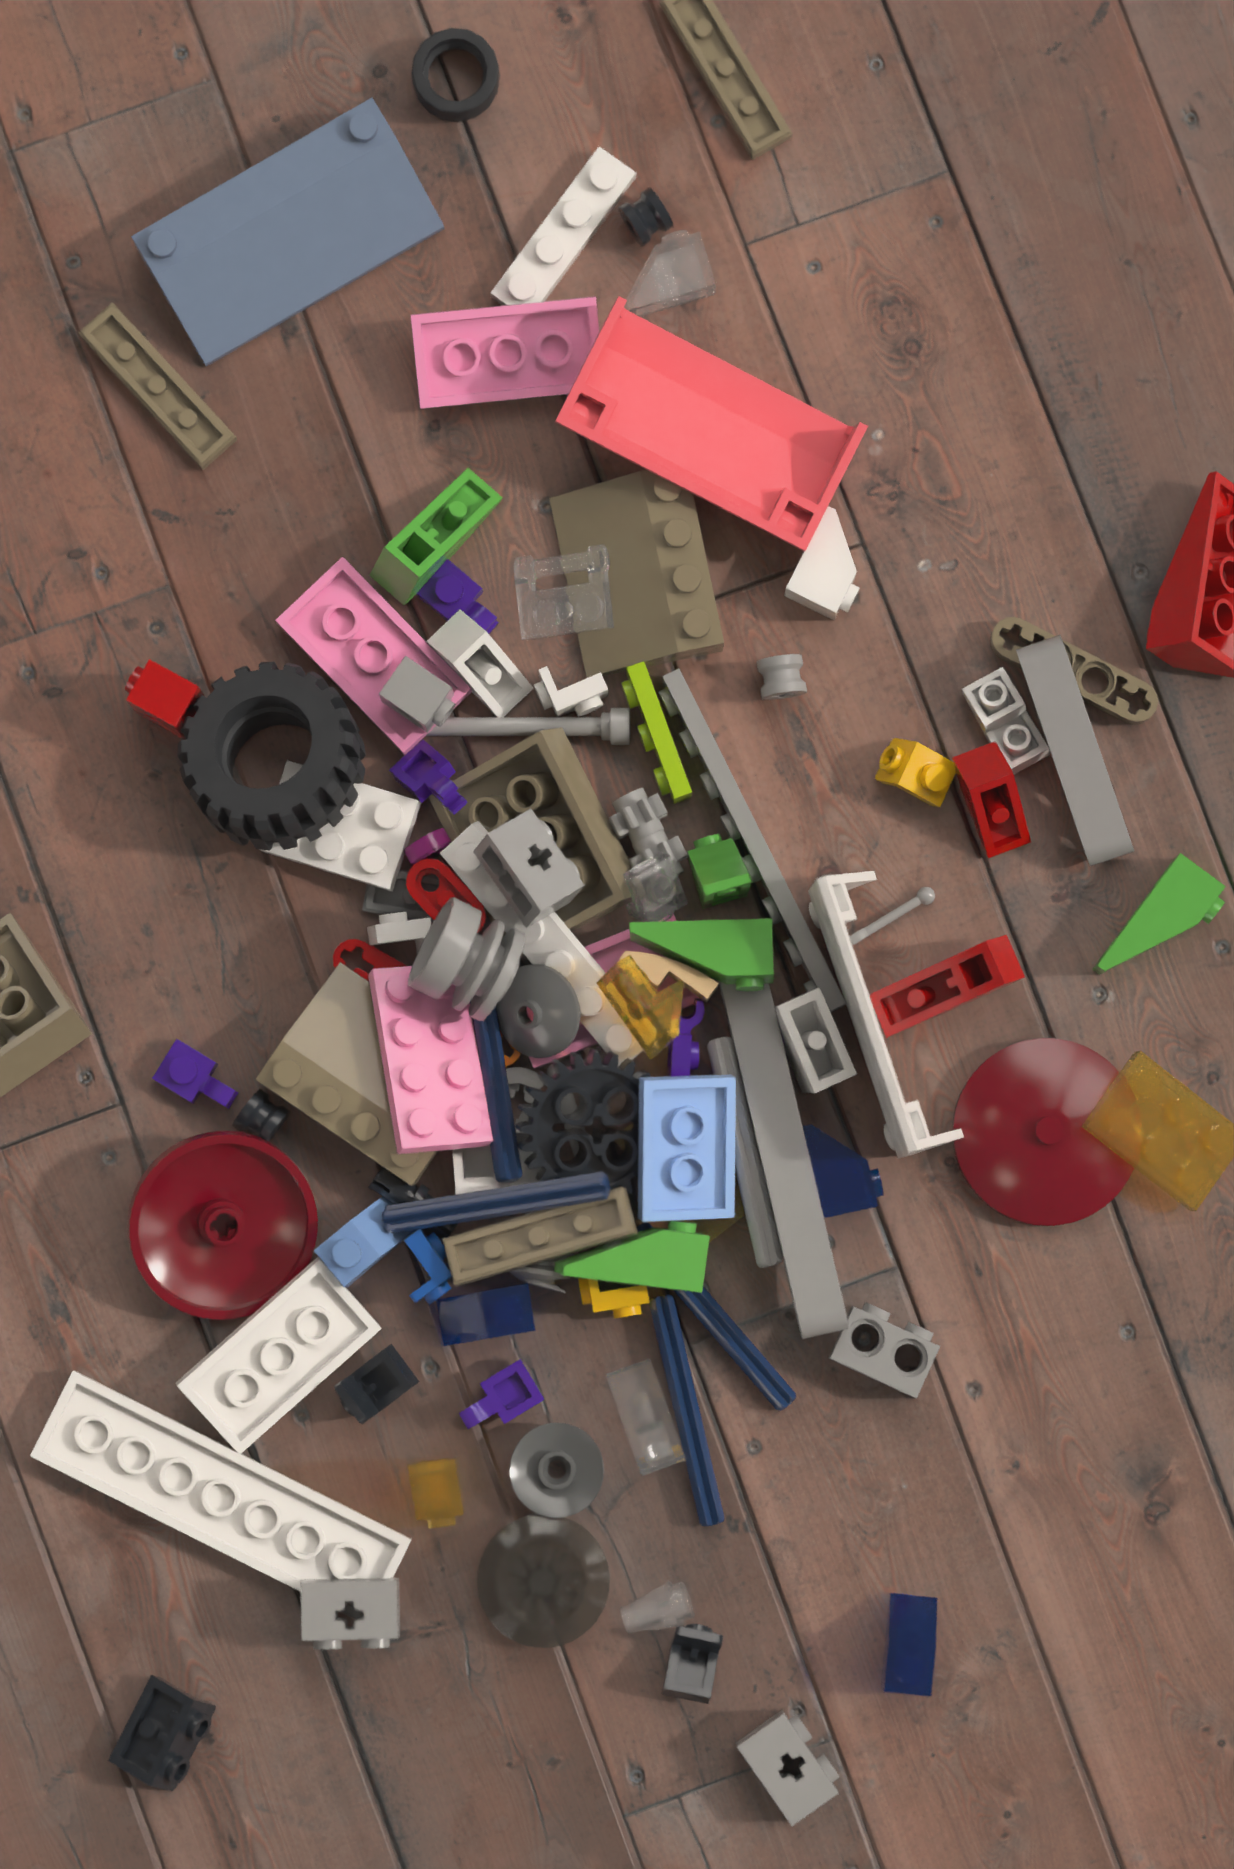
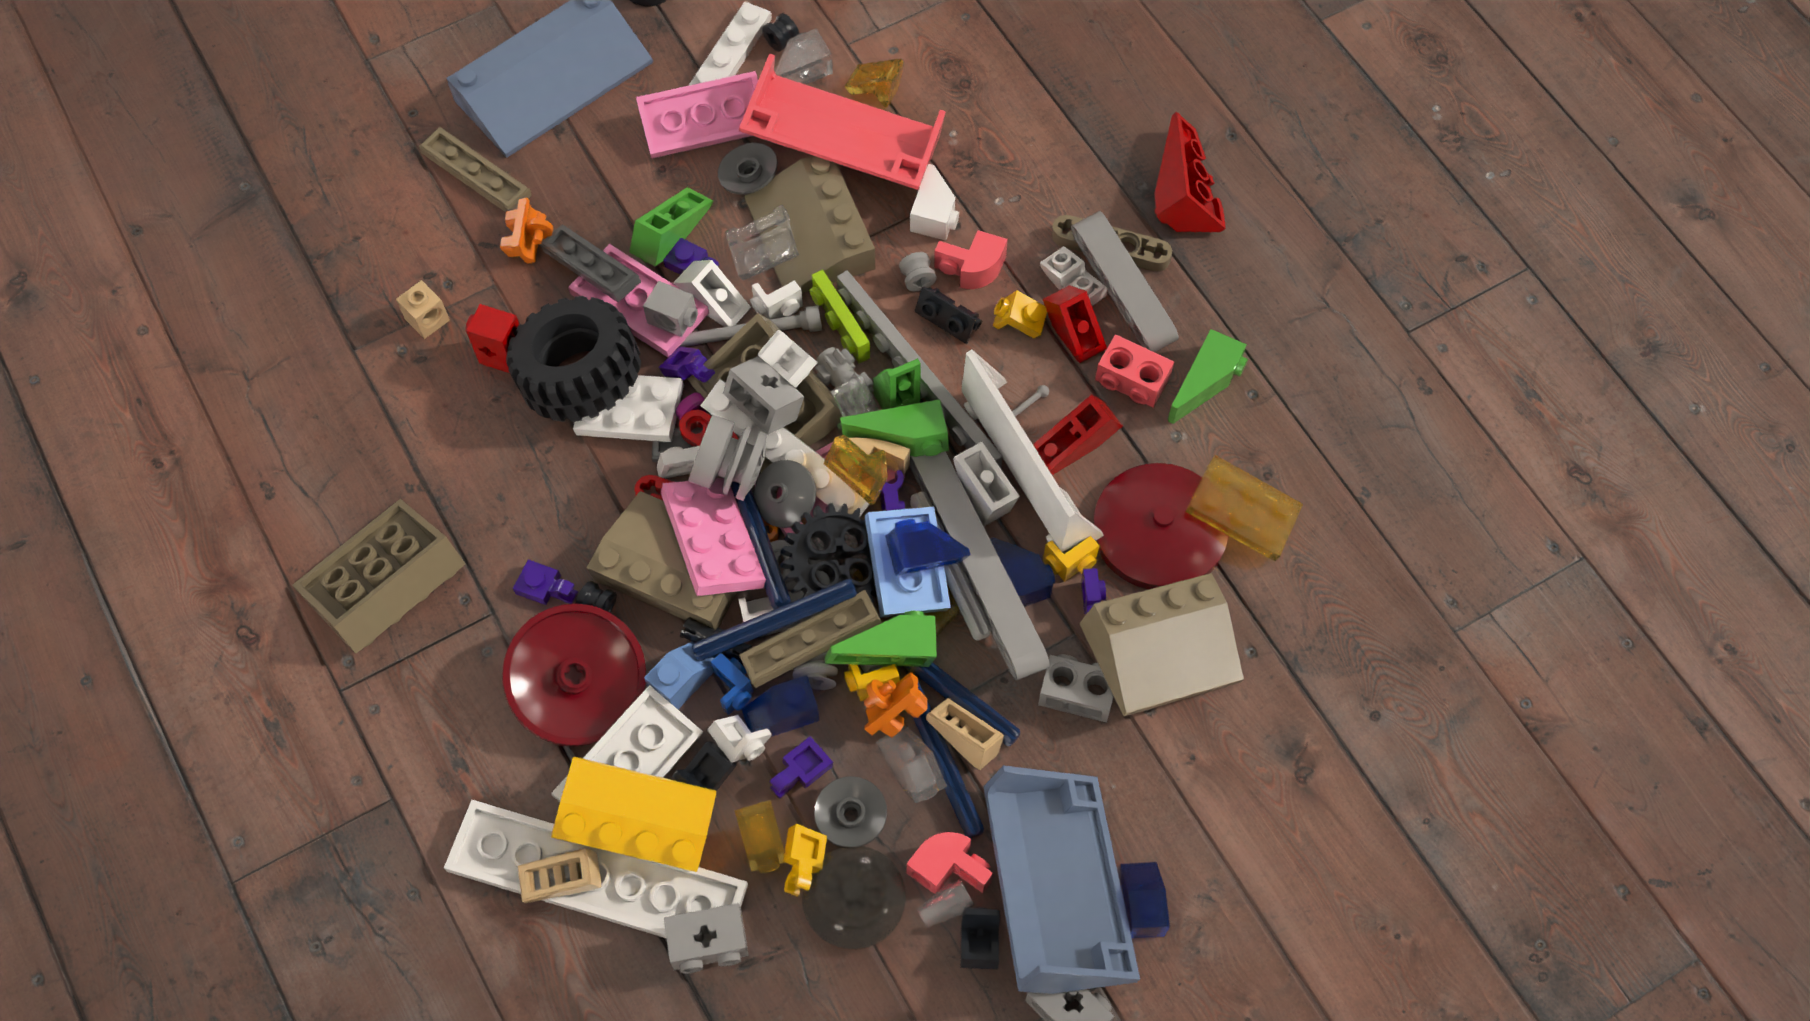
camera: 10 degrees left, 20 degrees down
(64, 623) = (423, 309): none -> tan brick
(214, 1487) = (590, 875): none -> tan slope
(227, 513) = (528, 231): none -> orange hips
(279, 1438) = (634, 814): none -> yellow slope
(311, 589) = (590, 263): none -> dark grey tile
(425, 1347) = (737, 740): none -> white bracket
(490, 1521) = (806, 855): none -> yellow plate
(539, 458) = (747, 168): none -> dark grey dish
(571, 823) = (787, 358): none -> white bracket
(630, 1339) = (889, 700): none -> orange hips
(663, 1548) = (944, 855): none -> coral brick
(706, 1144) = (922, 547): none -> clear blue slope
(711, 1395) = (974, 741): none -> tan slope
(774, 331) = (877, 77): none -> clear yellow slope
(797, 737) = (943, 313): none -> black hinge
(805, 1610) = (1059, 881): none -> sand blue slope
(872, 681) = (974, 266): none -> coral brick
(923, 1168) = (1074, 561): none -> yellow bracket
(932, 1219) = (1092, 589): none -> dark purple plate
(1009, 1319) = (1164, 643): none -> slope
(1066, 883) = (1137, 364): none -> coral brick

